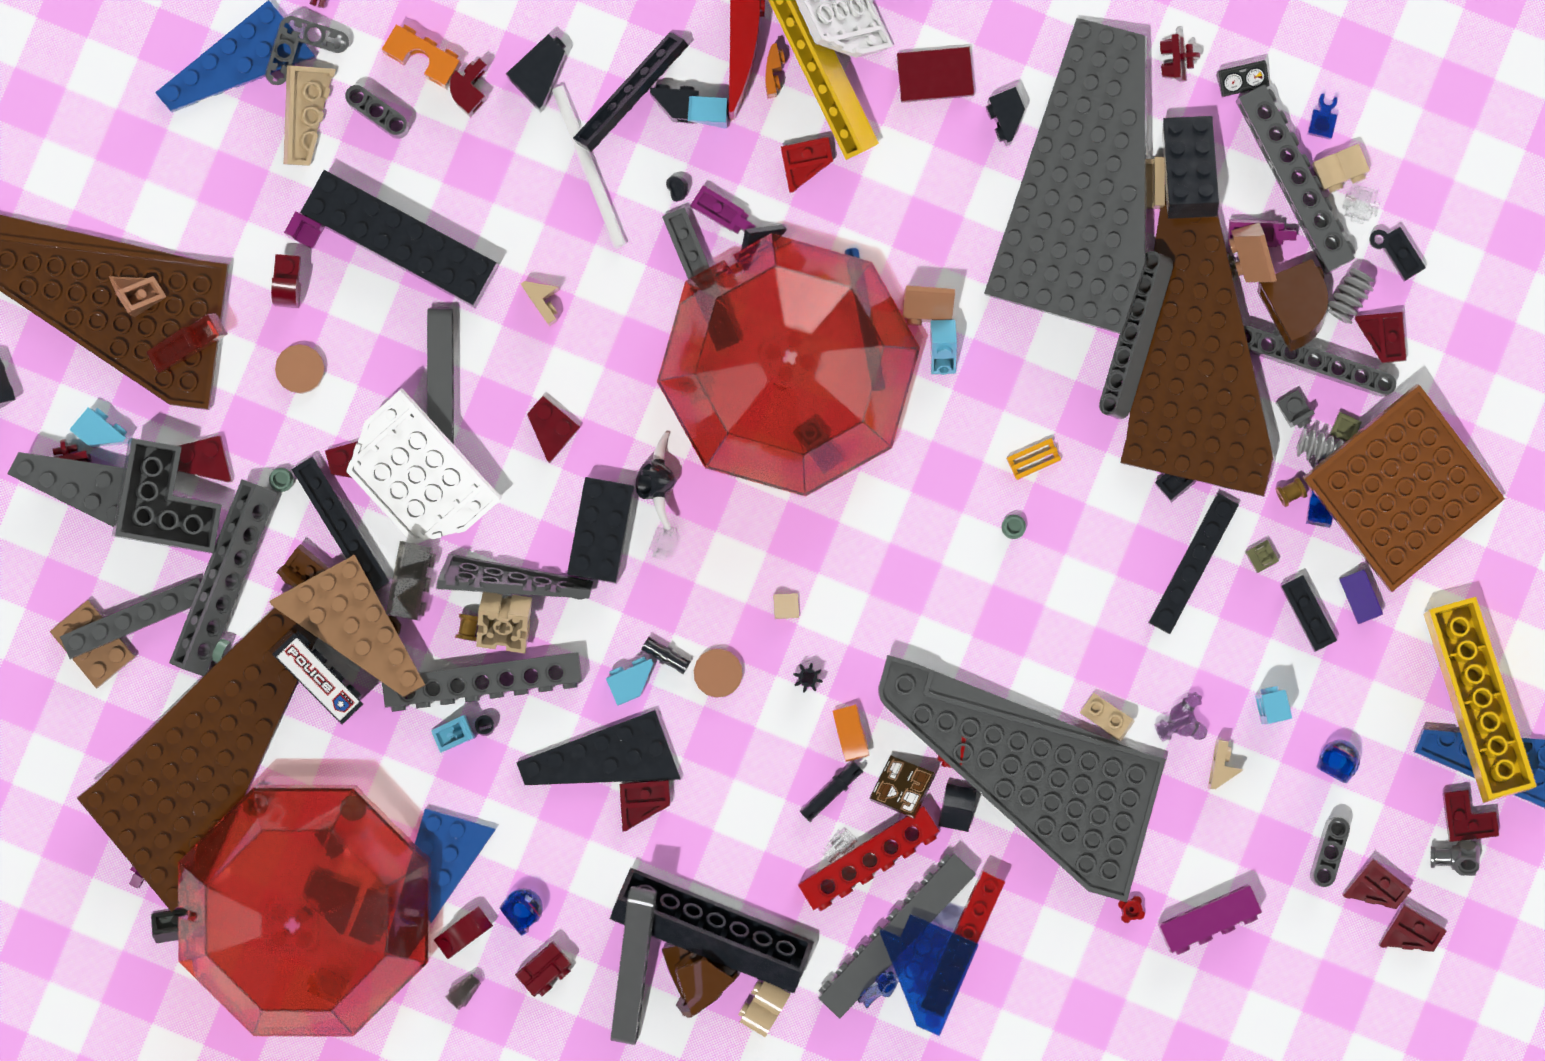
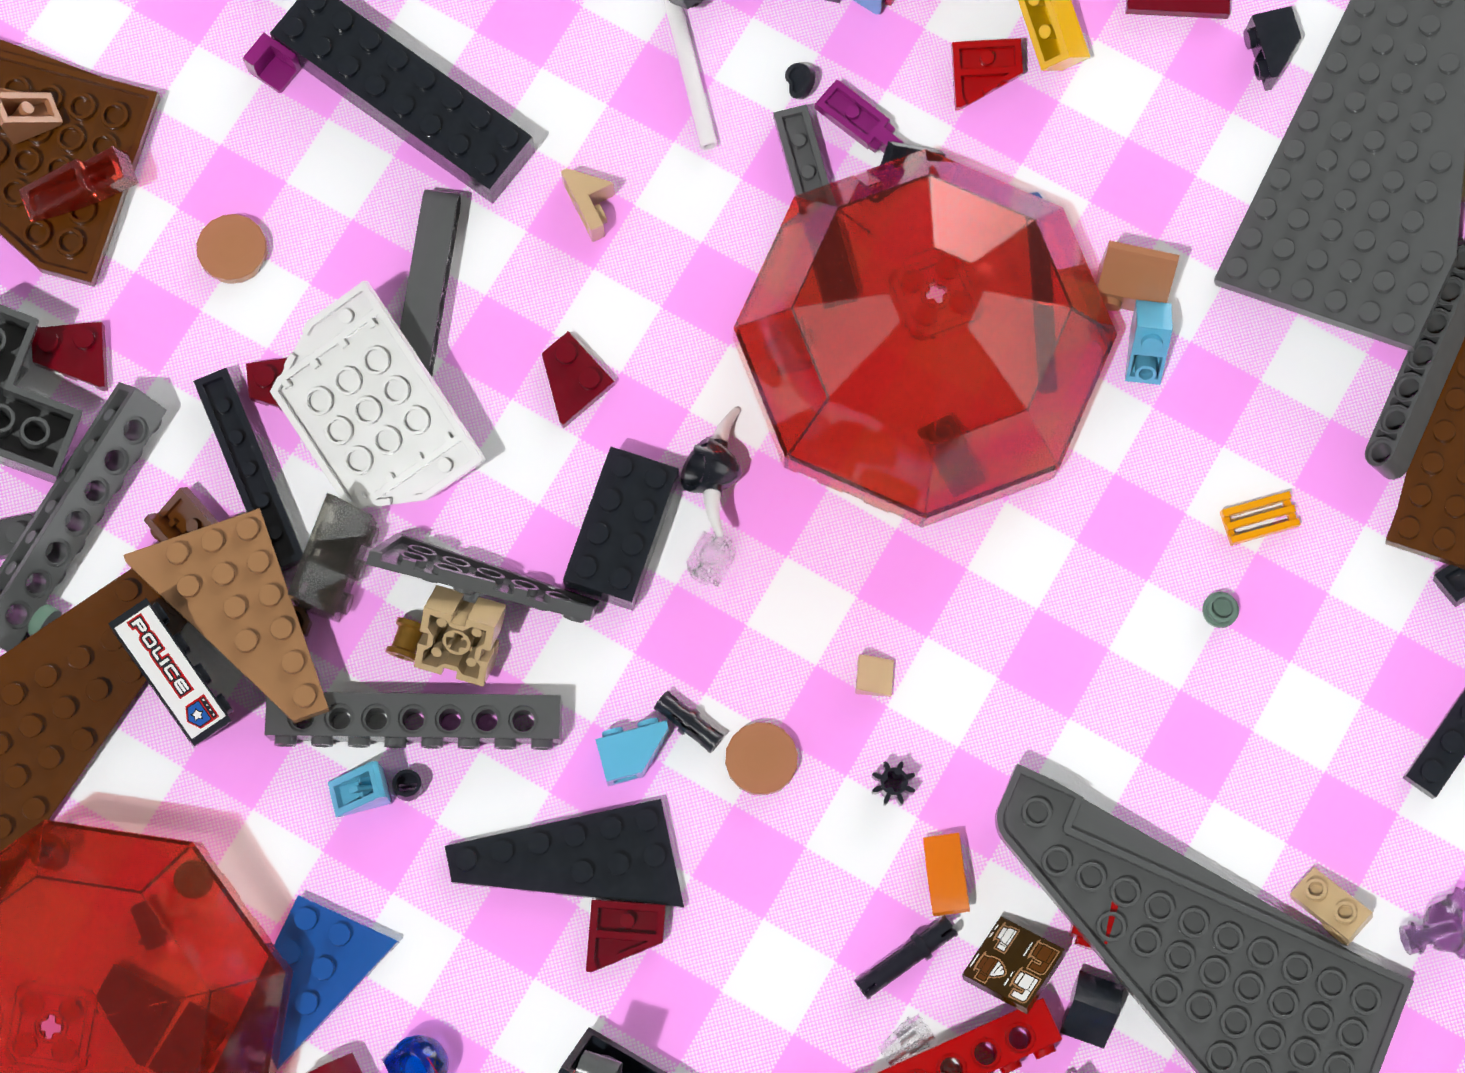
camera: 10 degrees right, 10 degrees down
(281, 479) = (177, 395): sand green plate -> none
(285, 281) = (230, 126): dark red brick -> none

